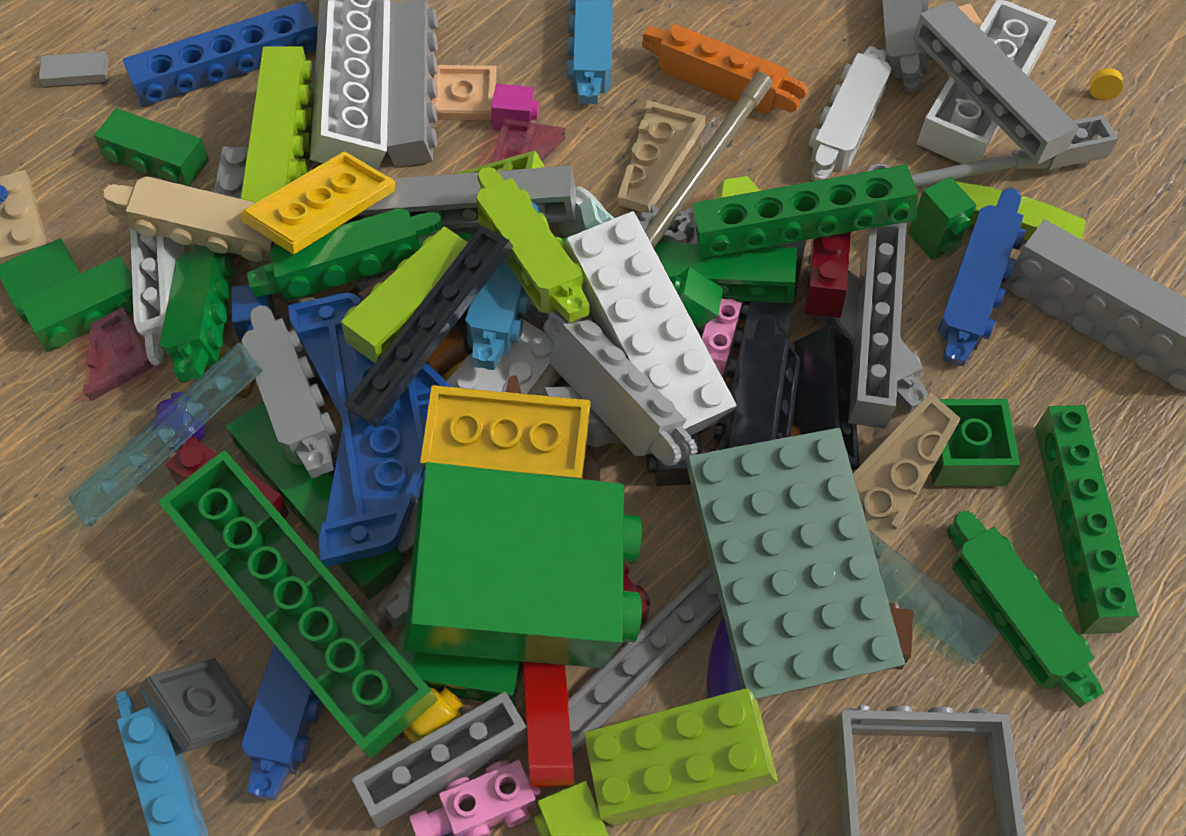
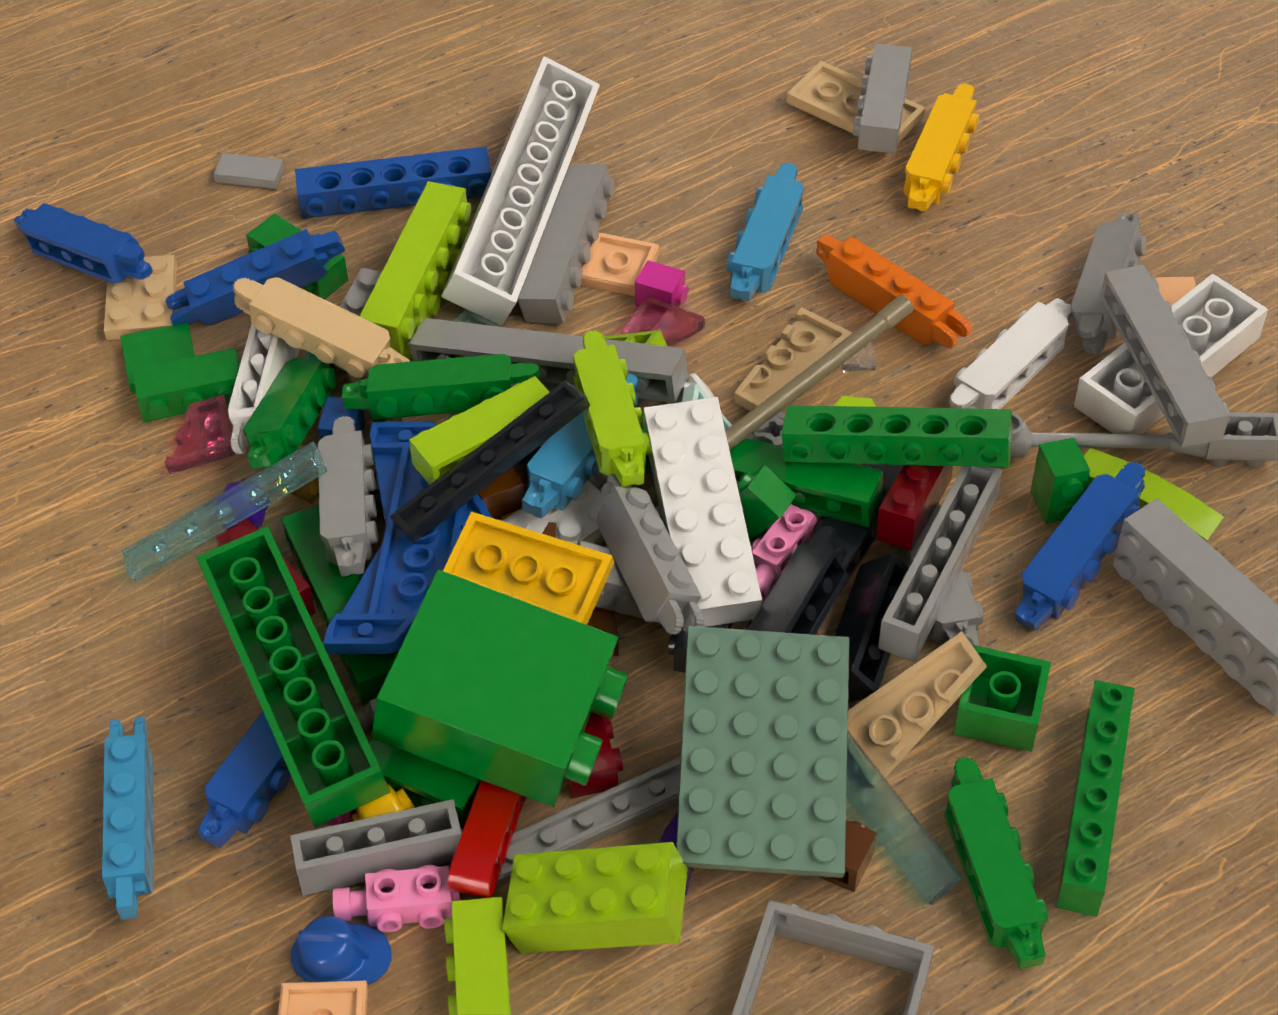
camera: 20 degrees right, 10 degrees down
(150, 153) = (295, 259): none -> blue hinge
(197, 704) = (178, 745): dark grey tile -> none
(318, 202) = (430, 333): yellow tile -> none

